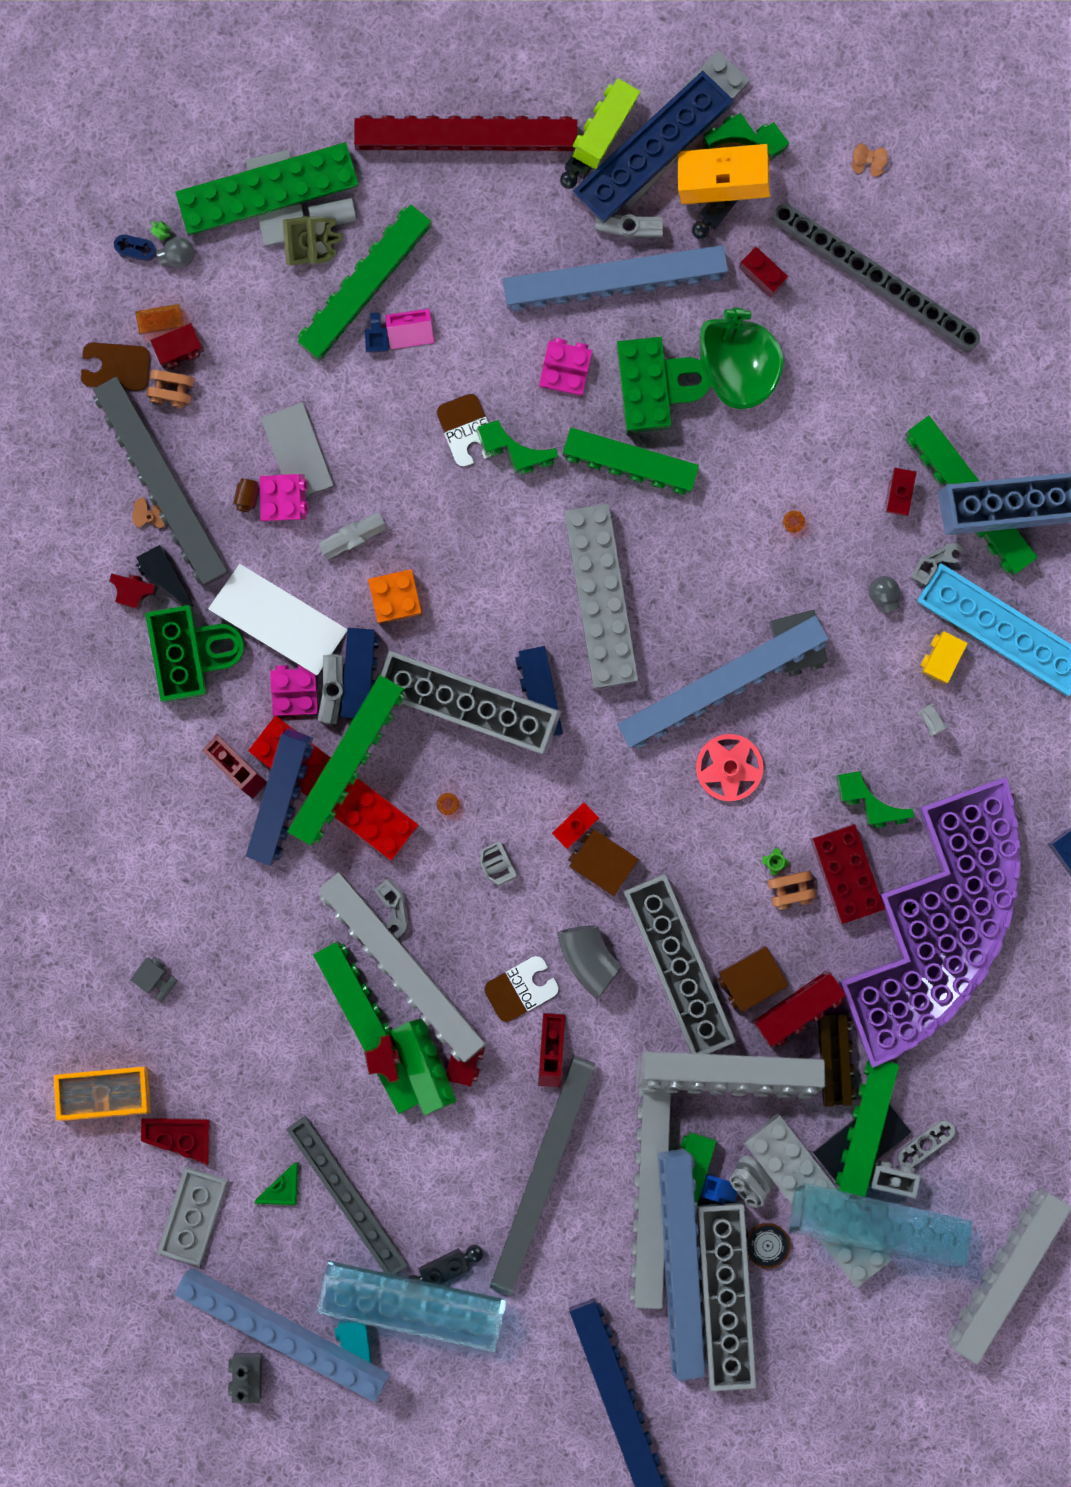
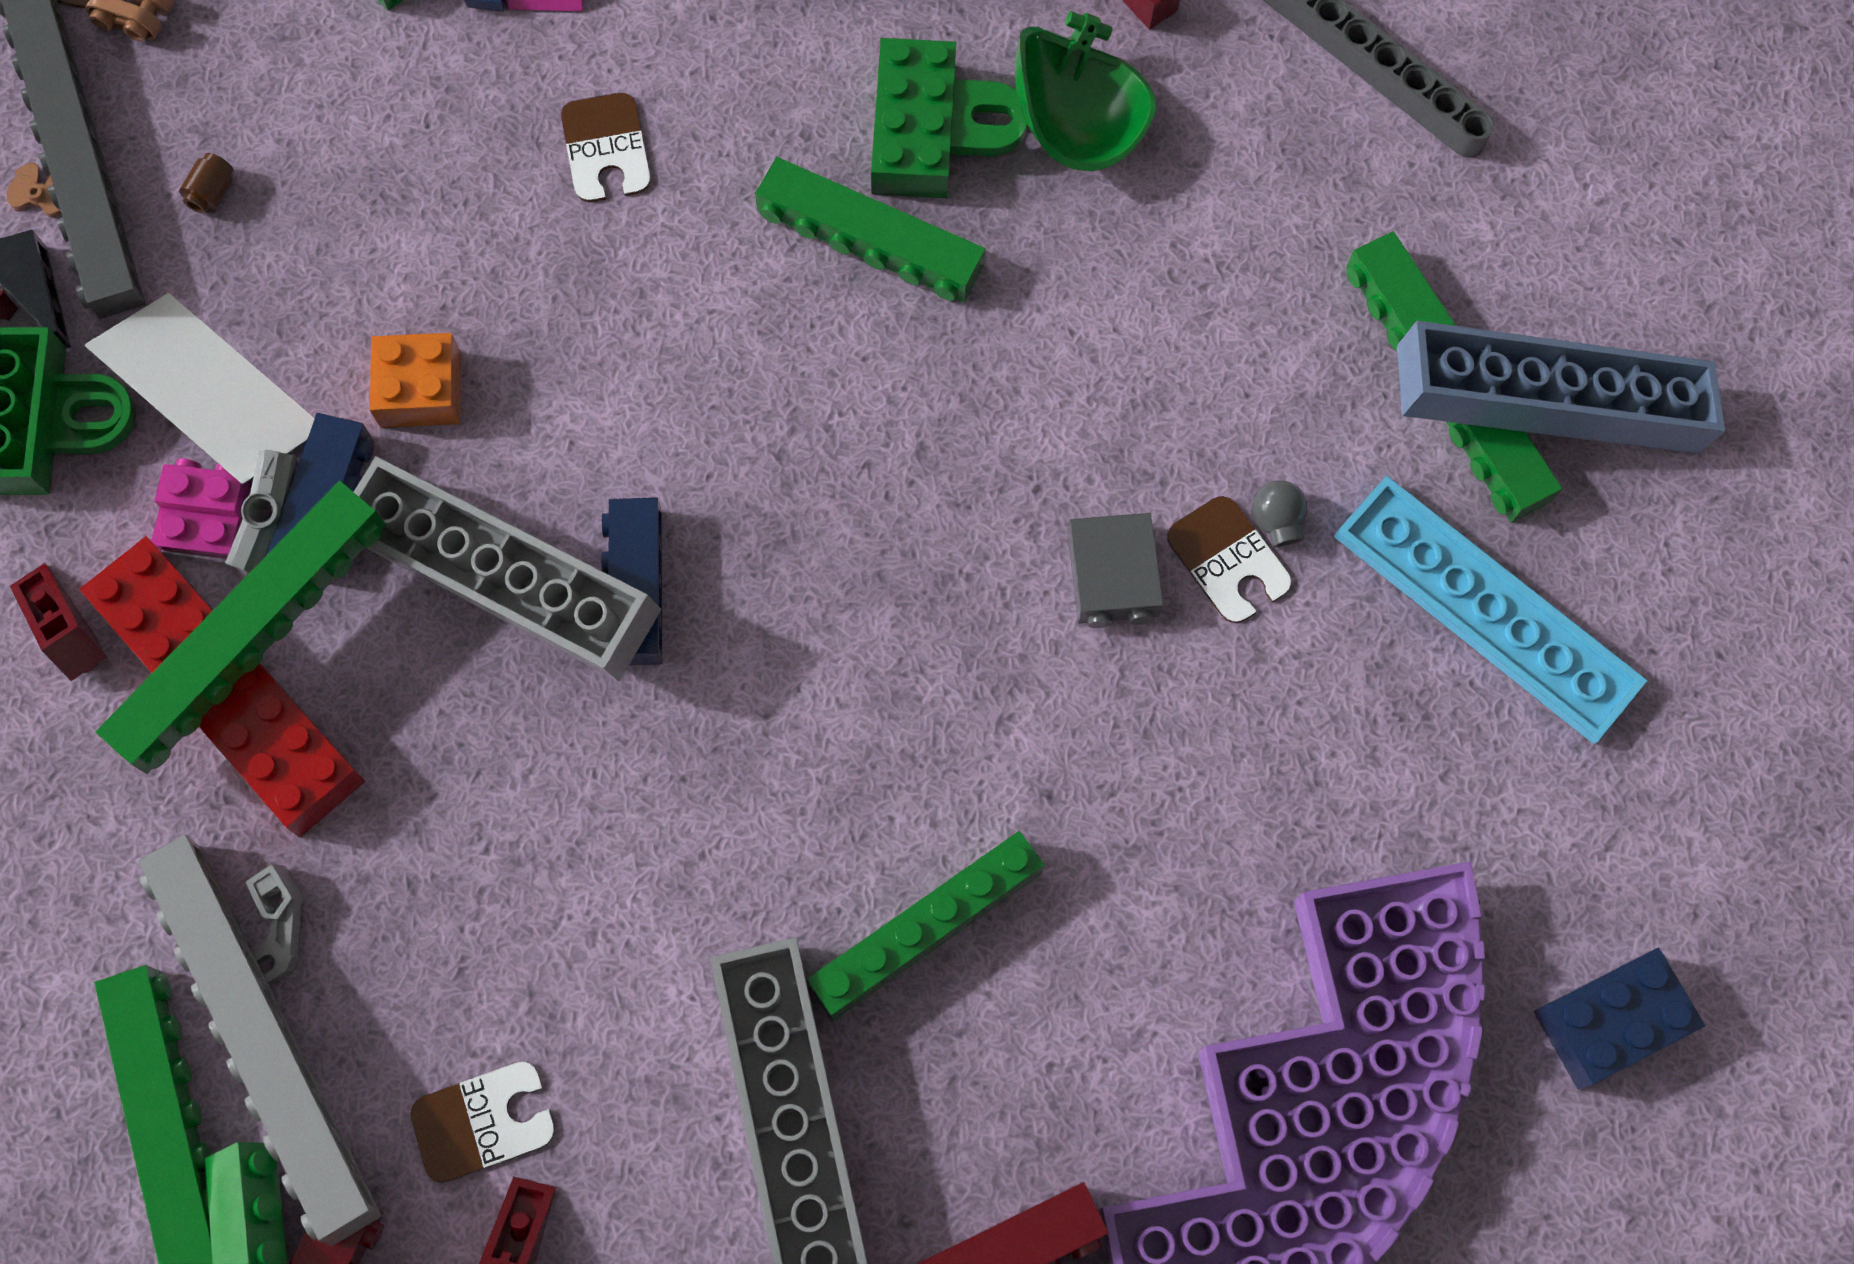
camera: 10 degrees right, 15 degrees down
(280, 796) = (106, 673): dark blue brick -> none
(283, 497) = (267, 194): dark pink plate -> none
(297, 447) = (313, 136): light grey tile -> none
(352, 536) = (367, 274): light grey piece -> none
(383, 1059) = (167, 1210): dark red brick -> none
(447, 796) = (416, 741): clear orange plate -> none
(497, 864) = (488, 874): light grey piece -> none
(523, 459) = (687, 195): green arch -> none
(565, 367) = (790, 74): dark pink plate -> none
(575, 825) = (647, 823): red brick -> none
(588, 958) = (620, 1082): dark grey brick -> none
(600, 596) = (774, 439): light grey brick -> none
(602, 861) = (686, 901): reddish brown brick -> none
(722, 682) = (966, 609): sand blue brick -> none
(729, 767) = (954, 769): coral wheel -> none
(729, 854) = (925, 925): none -> green brick
(752, 979) = (930, 1176): reddish brown brick -> none
(775, 855) = (1016, 945): bright green plate -> none
(793, 514) = (1140, 361): clear orange plate -> none
(804, 894) = (1055, 1028): nougat brick -> none
(847, 874) = (1145, 1000): dark red brick -> none
(853, 788) = (1217, 895): green arch -> none
(855, 618) = (1221, 550): none -> piece
(900, 492) = (1329, 344): dark red brick -> none
(932, 719) = (1341, 739): light grey piece -> none
(941, 555) = (1374, 469): light grey piece -> none
(943, 657) = (1373, 637): yellow brick -> none

